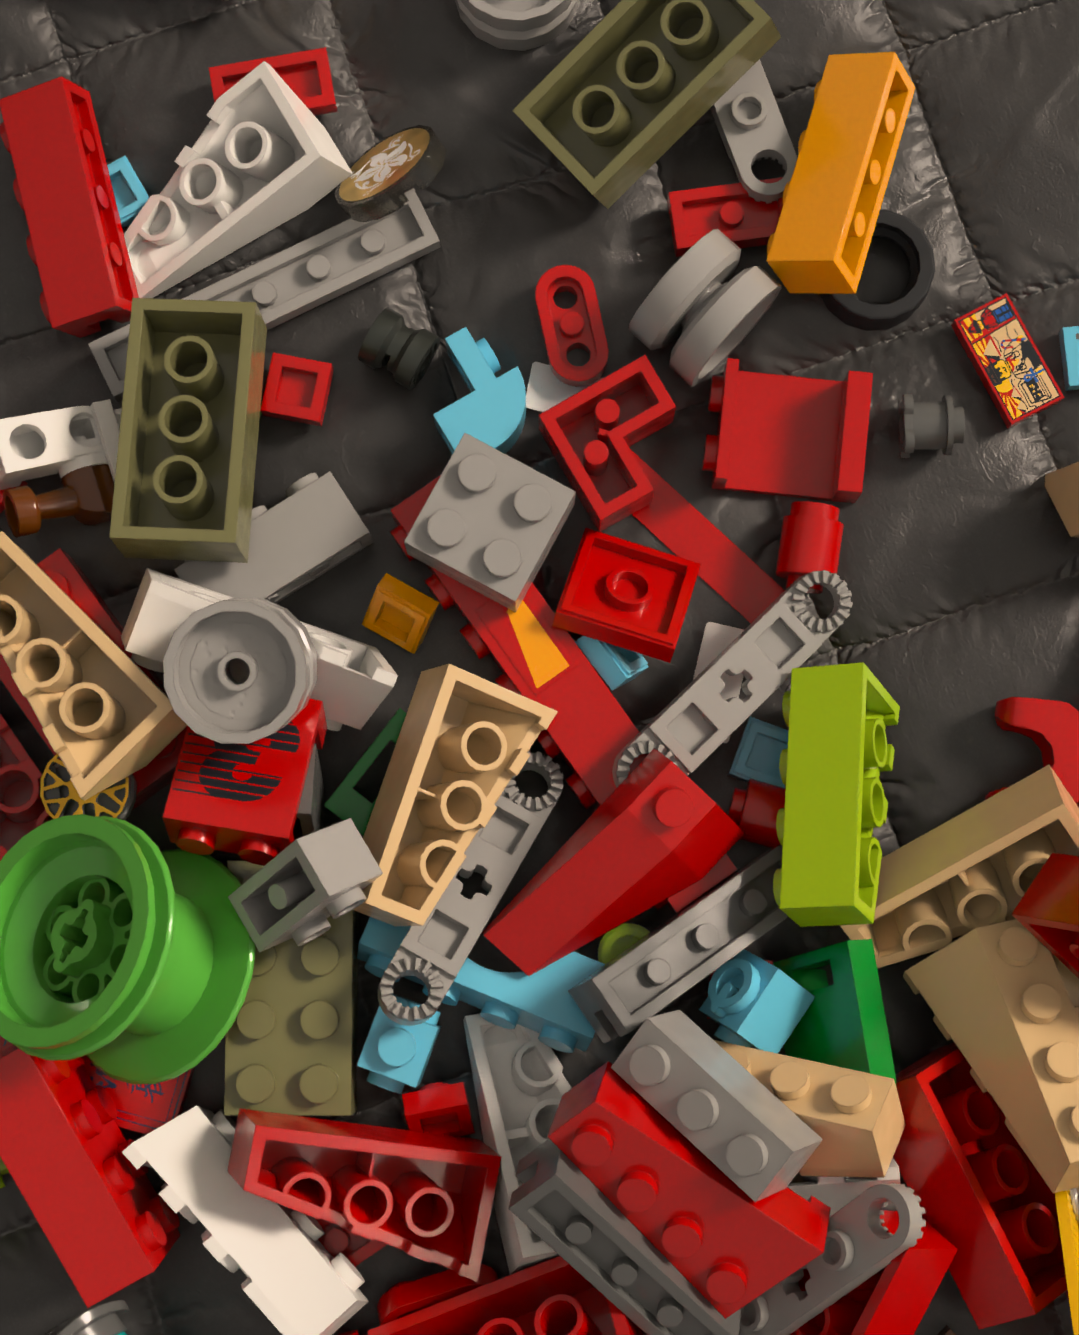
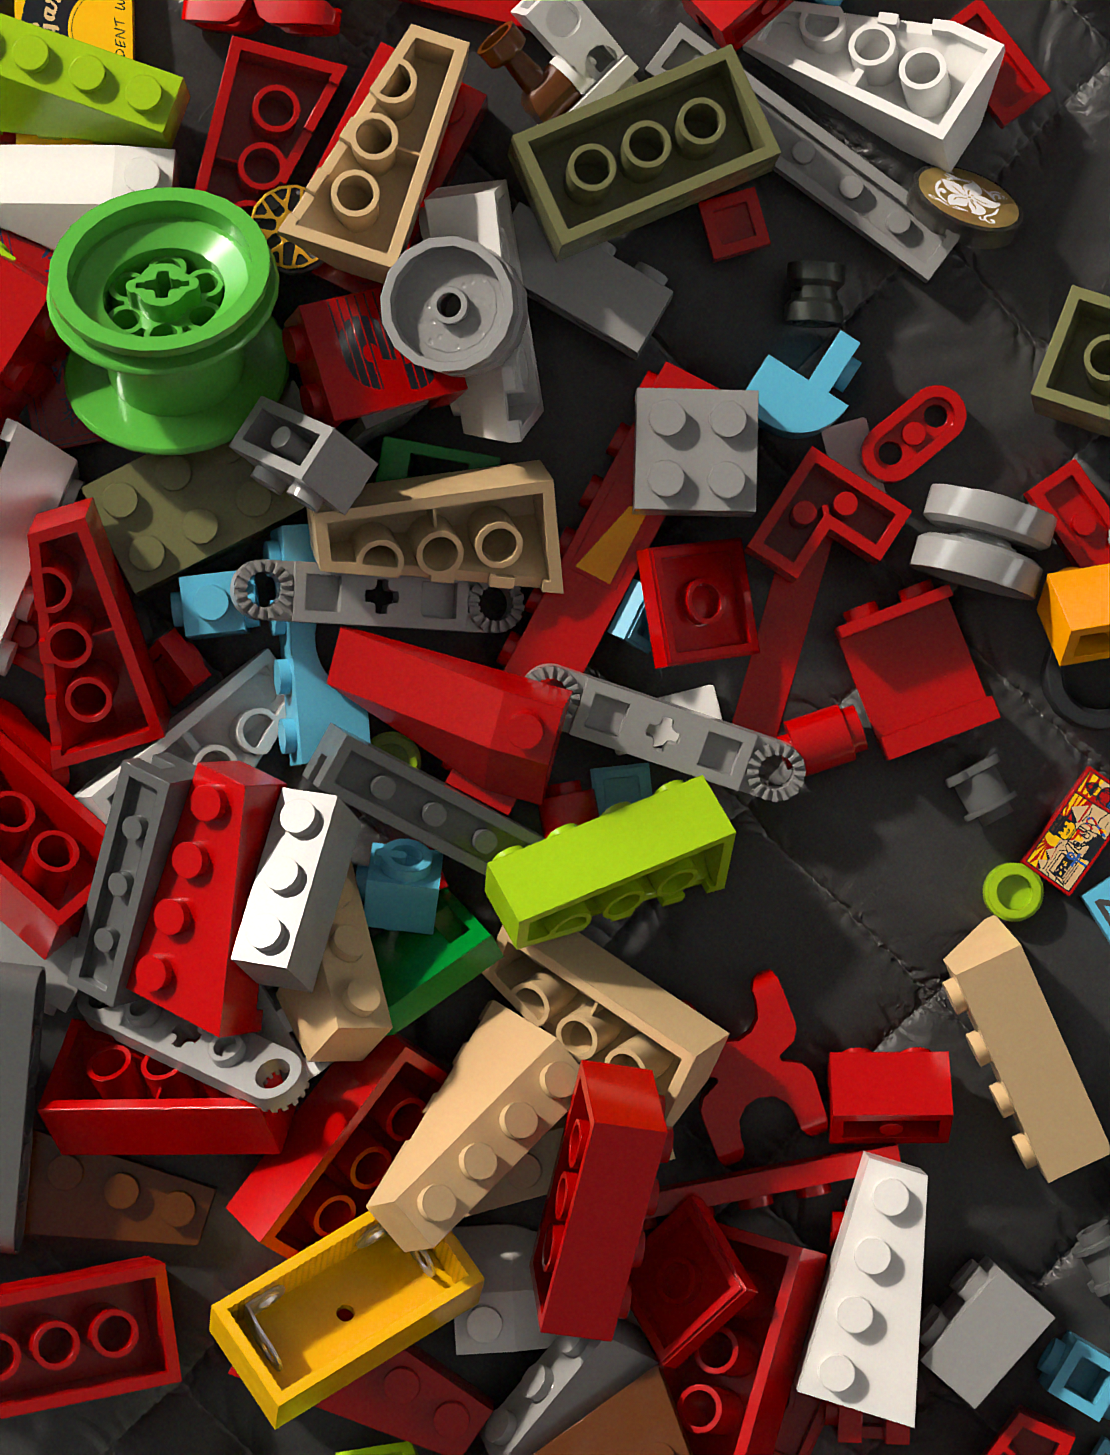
camera: 60 degrees right, 5 degrees up
(400, 613) = (582, 415): light orange tile -> none
(1033, 447) = (1013, 892): none -> lime tile

